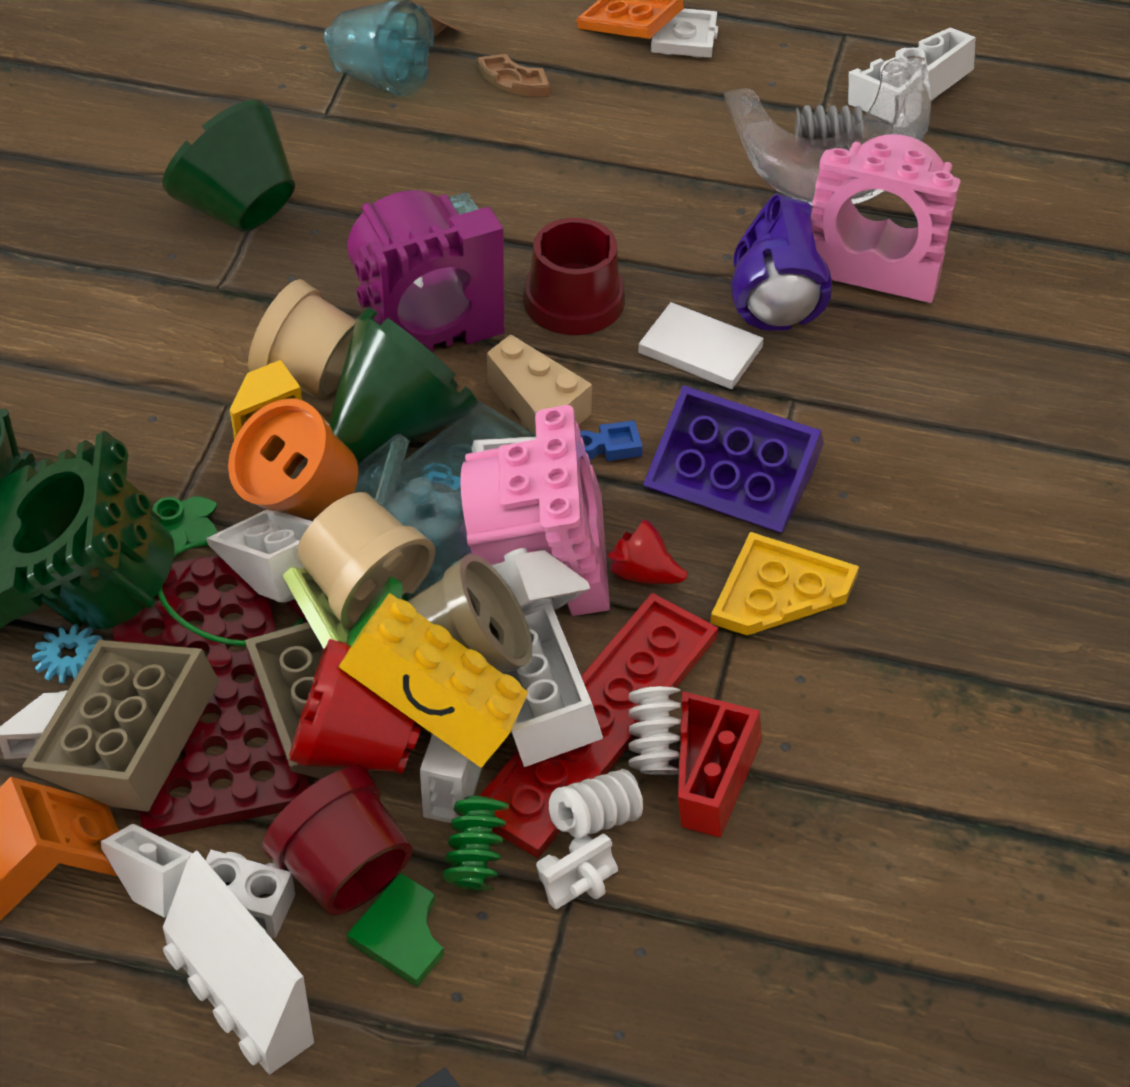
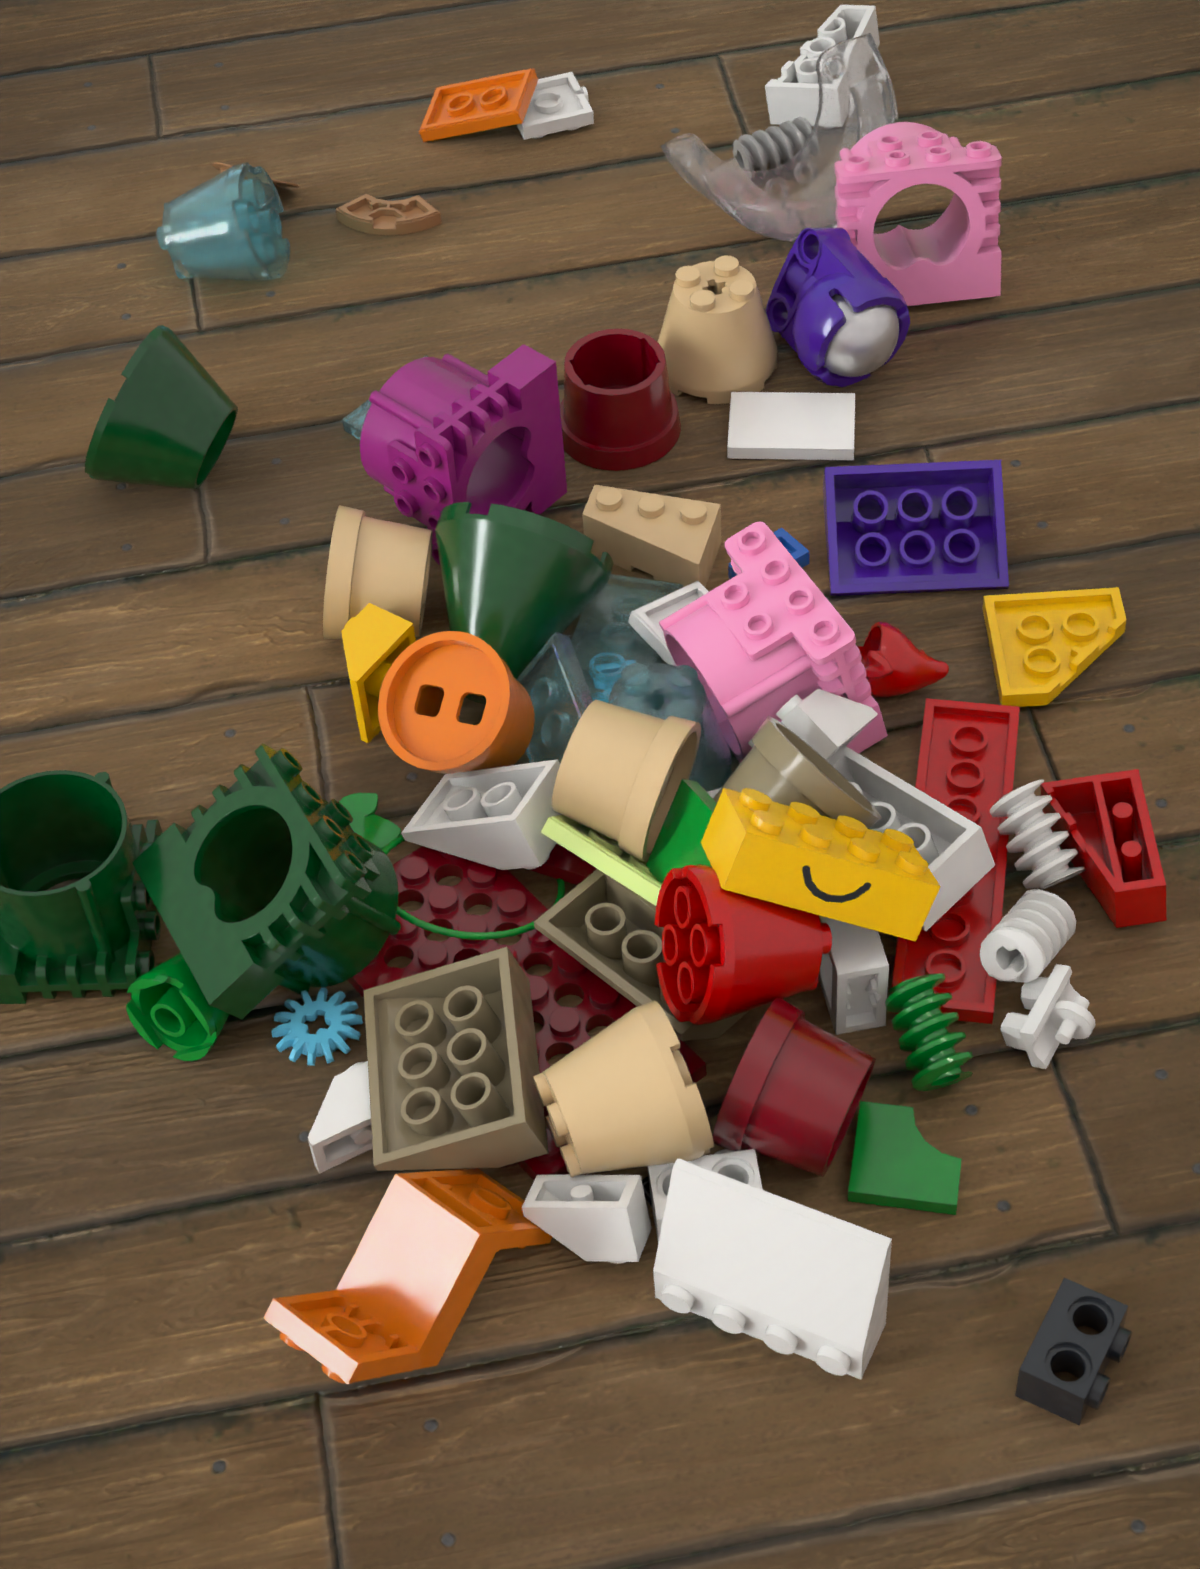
camera: 20 degrees left, 0 degrees up
(214, 794) = (625, 1098): none -> tan cone
(681, 252) = (717, 332): none -> tan cone

